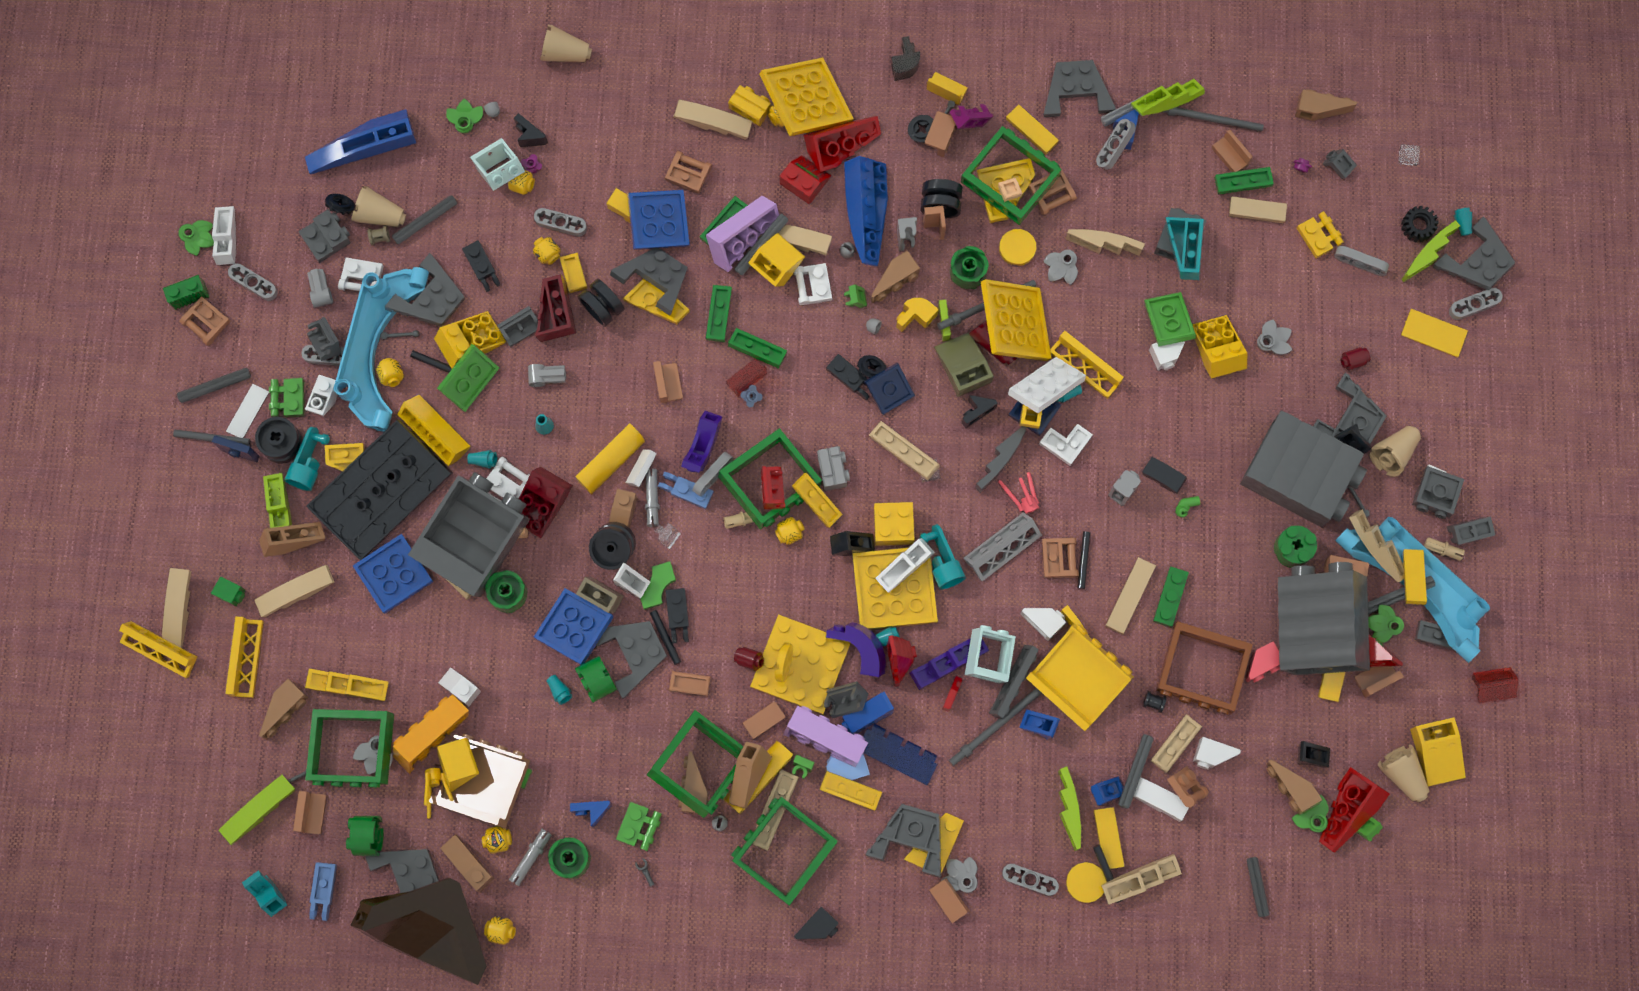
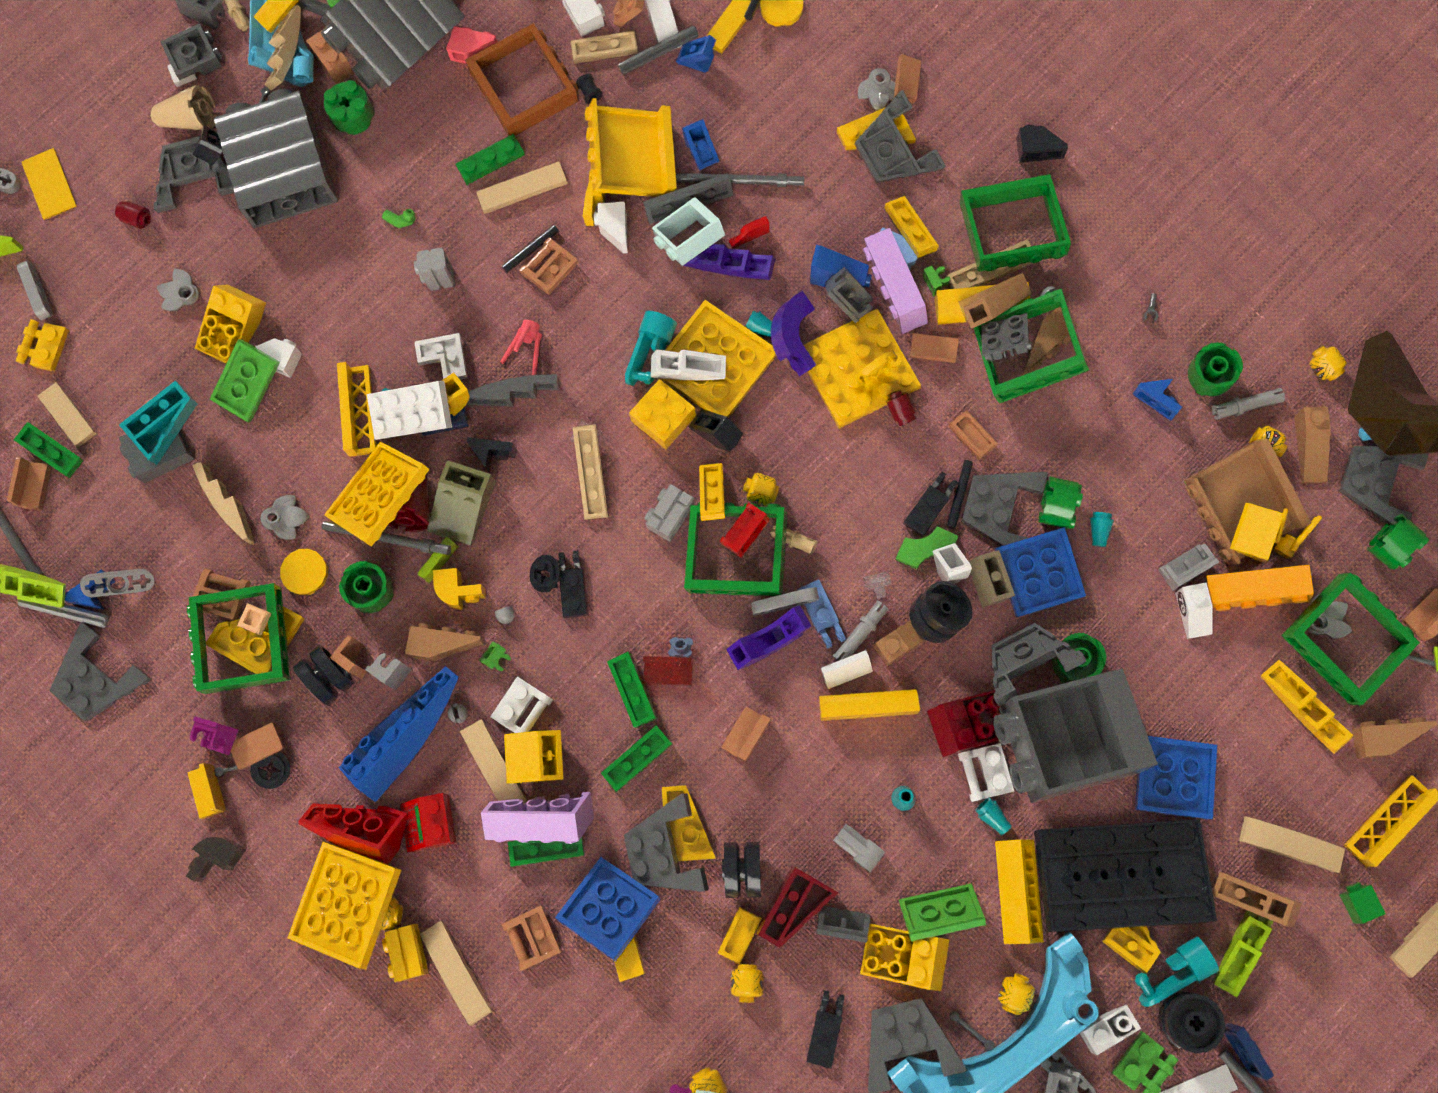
camera: 130 degrees left, 0 degrees up
(430, 361) = (961, 967): black bar -> none
(485, 711) = (1188, 566): none -> light grey hinge
(542, 564) = (1025, 651): none -> dark grey wing
(556, 215) = (720, 1017): light grey beam -> none
(633, 824) = (1129, 357): bright green plate -> none
(718, 752) = (1004, 336): none -> dark grey hinge
(774, 228) = (533, 789): dark grey axle -> none
(889, 388) = (548, 539): dark blue plate -> none
(900, 656) = (769, 291): red wedge -> none
(900, 758) = (839, 216): clear blue windscreen -> none
(1001, 542) = (584, 317): light grey fence -> none
(1017, 869) = (825, 33): light grey beam -> none
(1032, 129) = (174, 674): yellow tile -> none
(1071, 815) = (742, 61): lime slope -> none
(1164, 474) = (391, 258): black slope -> none

